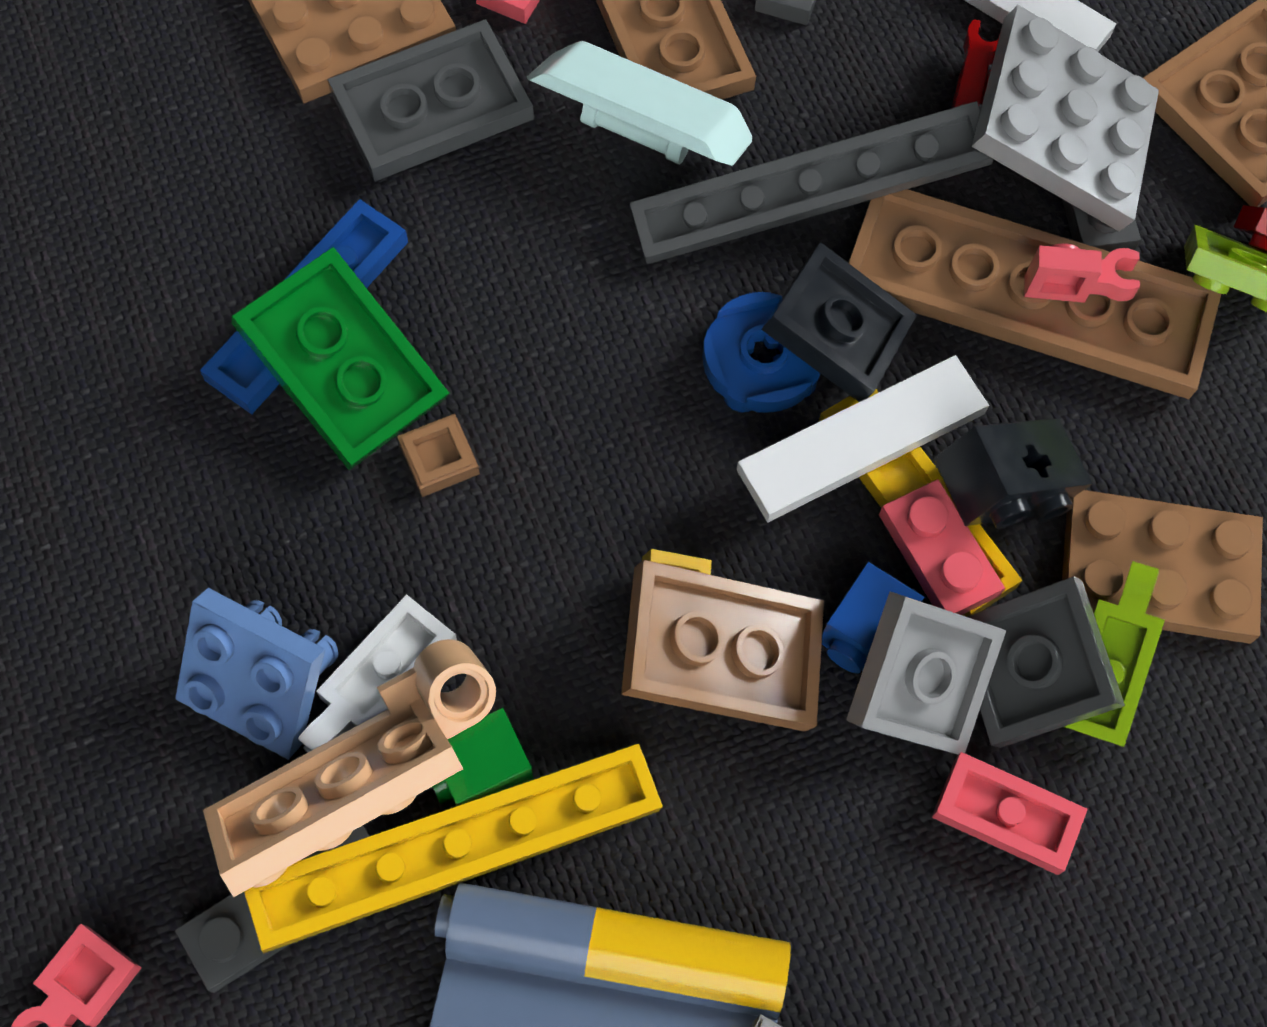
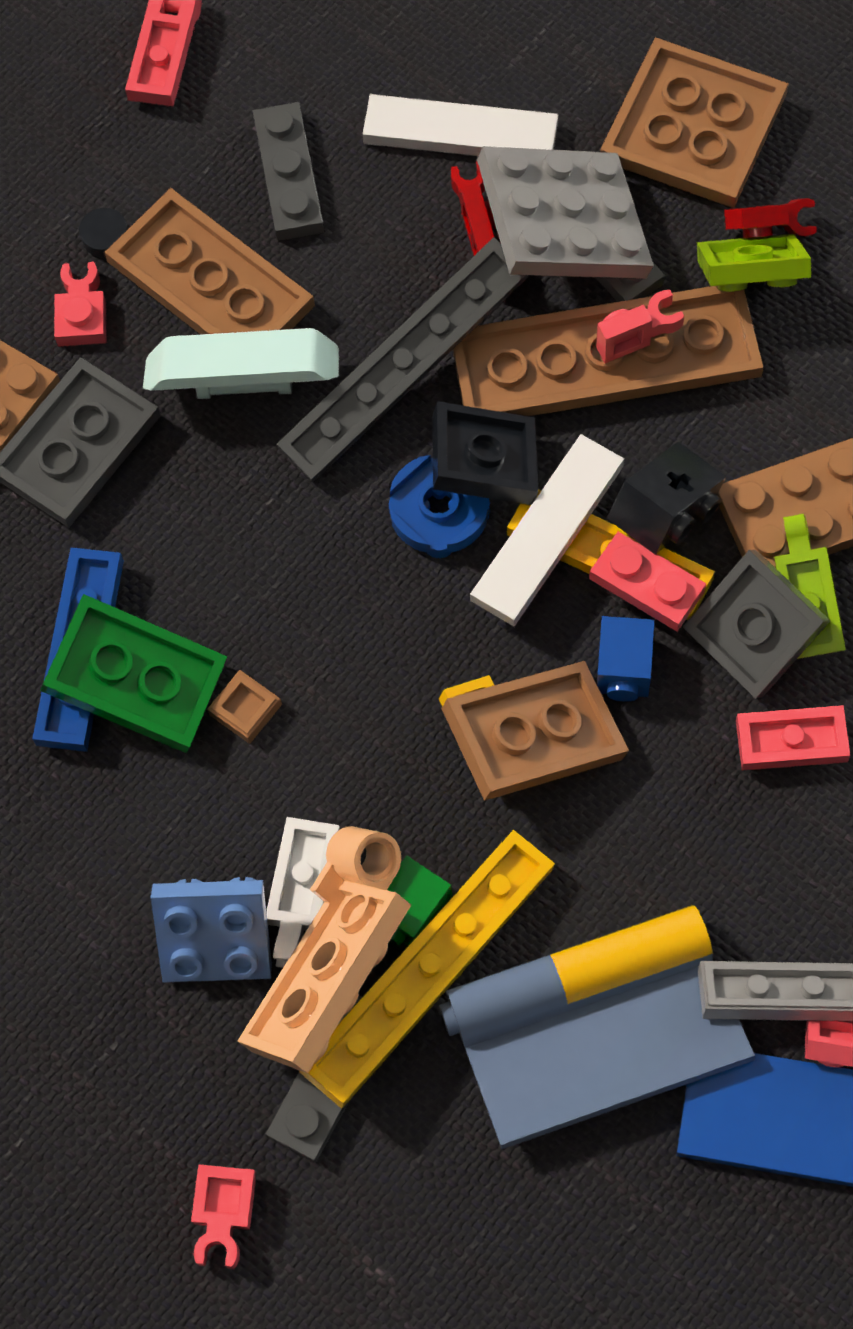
camera: 20 degrees left, 0 degrees up
(925, 674) = (685, 672): light grey plate -> none

